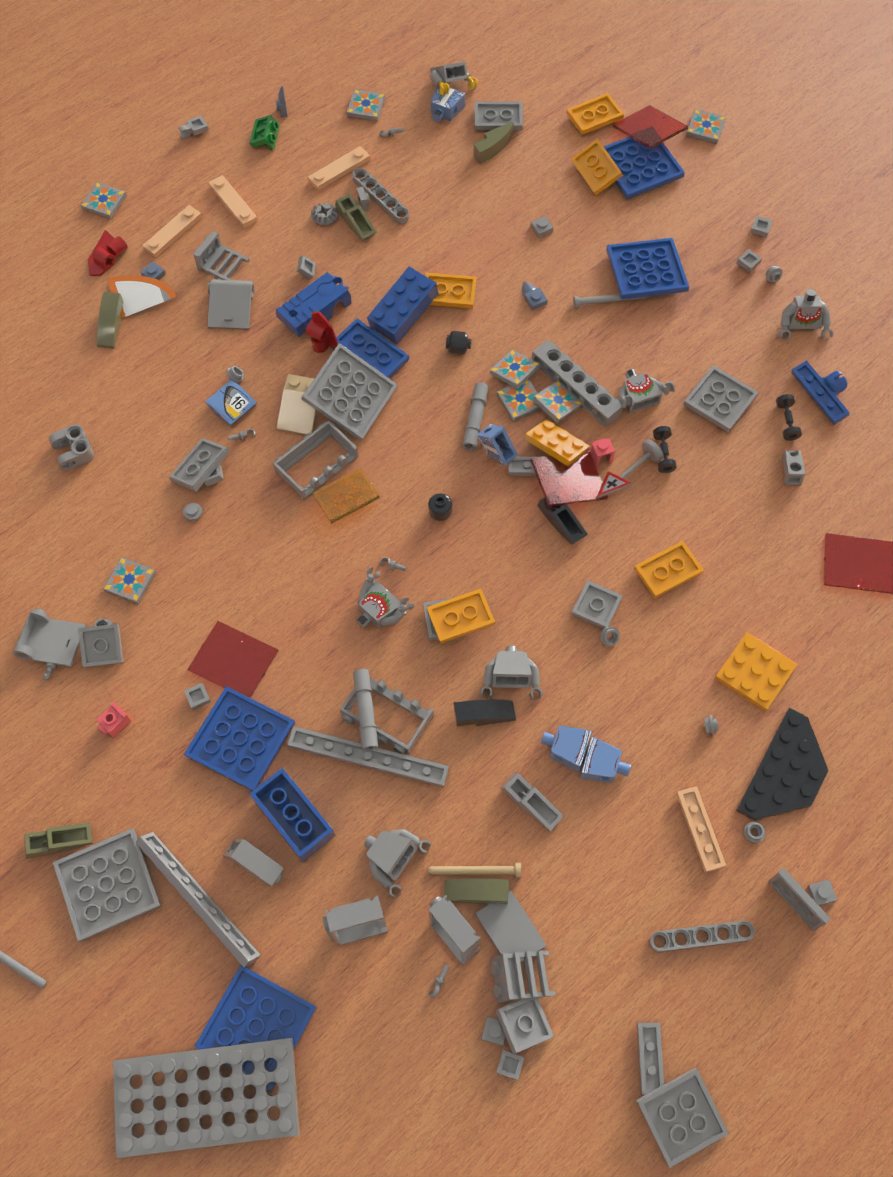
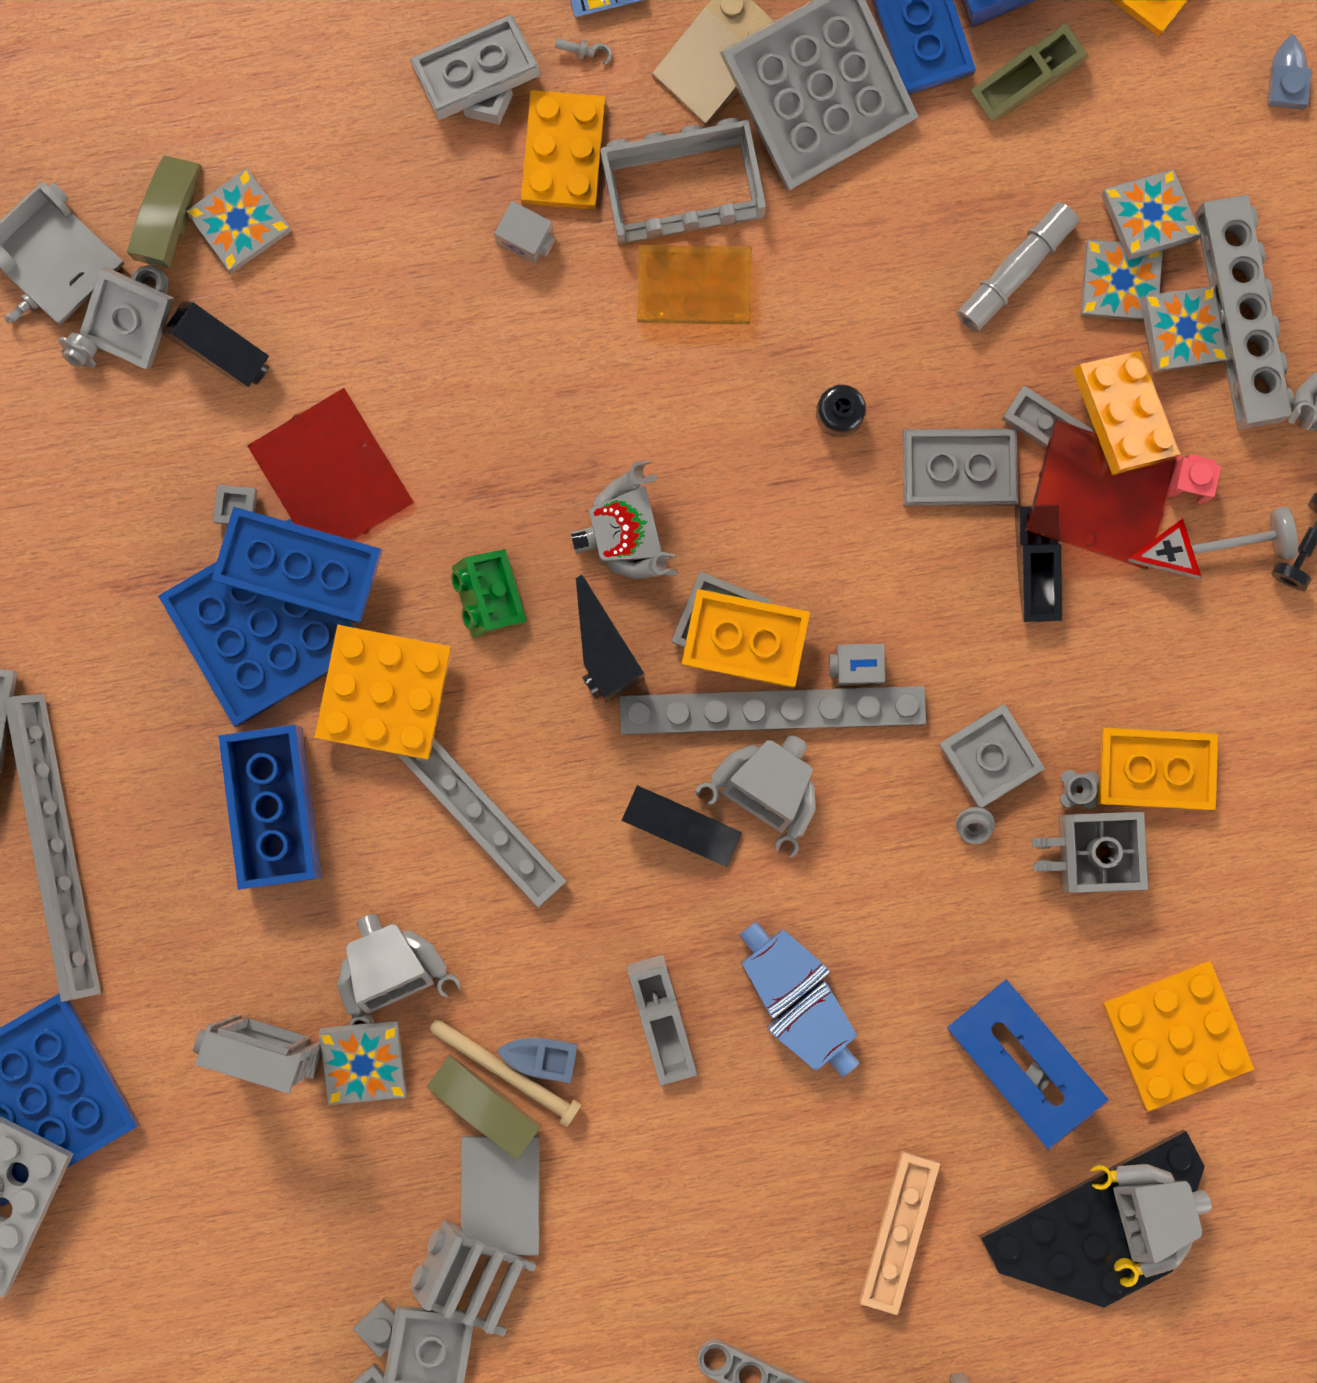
camera: 30 degrees right, 20 degrees up
(85, 672) = (78, 350): none -> light grey plate
(93, 594) = (163, 212): none -> olive slope
(119, 721) = (90, 467): coral brick -> none
(148, 632) = (216, 344): none -> black slope
(192, 511) = (414, 153): light grey plate -> none
(241, 701) = (297, 565): none -> blue plate
(254, 861) = (168, 844): light grey slope -> none
(257, 476) = (563, 150): none -> light orange plate
(261, 515) = (525, 233): none -> light grey brick
(314, 733) = (383, 692): none -> light orange plate
(334, 666) = (487, 592): none -> green bracket
(365, 710) = (485, 709): light grey piece -> none
(393, 565) = (696, 467): light grey hand -> none
(397, 698) = (478, 731): light grey window -> none
(405, 657) = (606, 656): none -> black slope
(406, 906) = (363, 1062): none -> tile
(431, 345) = (1030, 73): none -> olive slope
(439, 980) = (345, 1202): light grey hand -> none
(453, 929) = (399, 1161): light grey window -> none
(458, 342) = (1082, 96): black head -> none
(488, 852) = (541, 1057): none -> sand blue plate
(490, 643) = (772, 710): none -> light grey plate
(496, 438) = (1016, 335): medium blue torso -> none
(504, 503) = (960, 467): none -> light grey tile
(515, 601) = (858, 664): none -> light grey brick
(644, 591) = (1087, 796): none -> light grey plate
(668, 614) = (1080, 866): none -> light grey hinge
(708, 731) = (1045, 1120): none -> blue piece
(758, 828) = (986, 1301): light grey plate -> none
(804, 745) = (1157, 1218): none -> light grey torso

